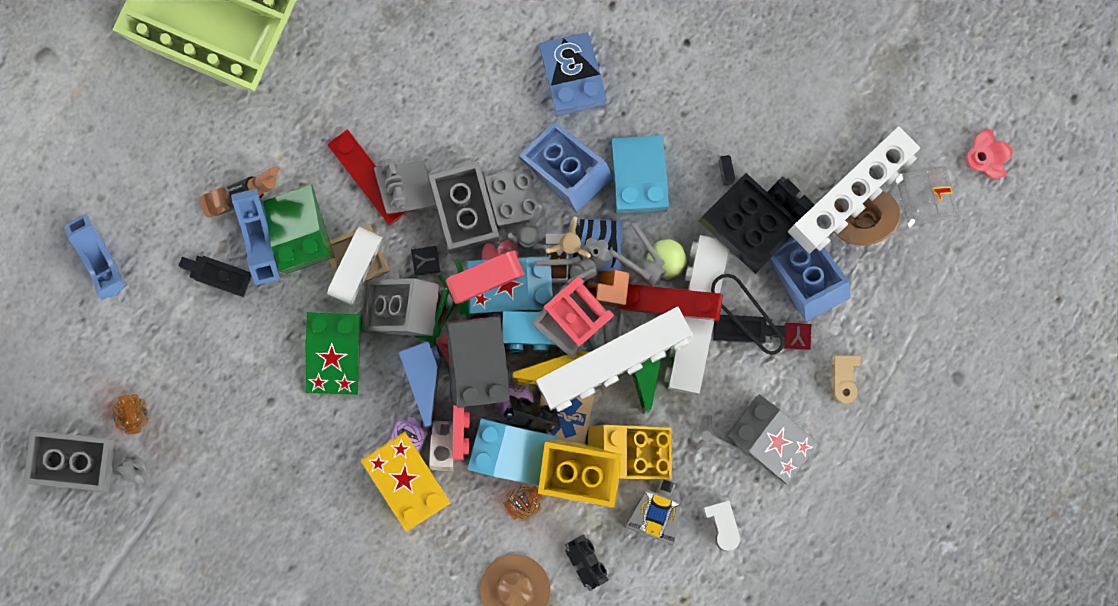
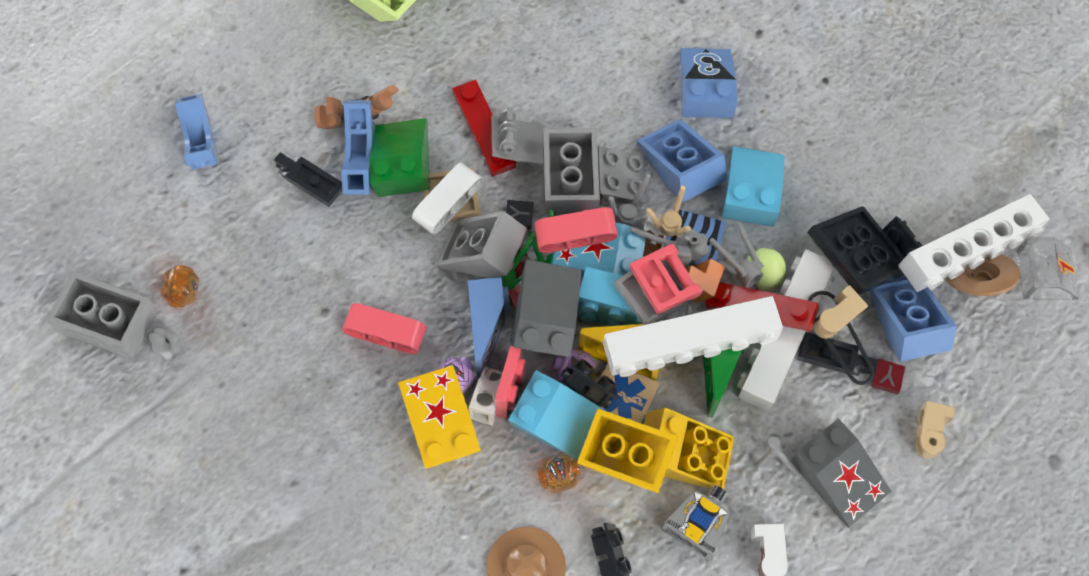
camera: 20 degrees right, 15 degrees down
(331, 406) = (384, 328): none -> coral beam
(332, 353) = (402, 273): green slope -> none
(726, 170) = (843, 197): black tile -> none
(743, 297) = (836, 318): none -> tan leg

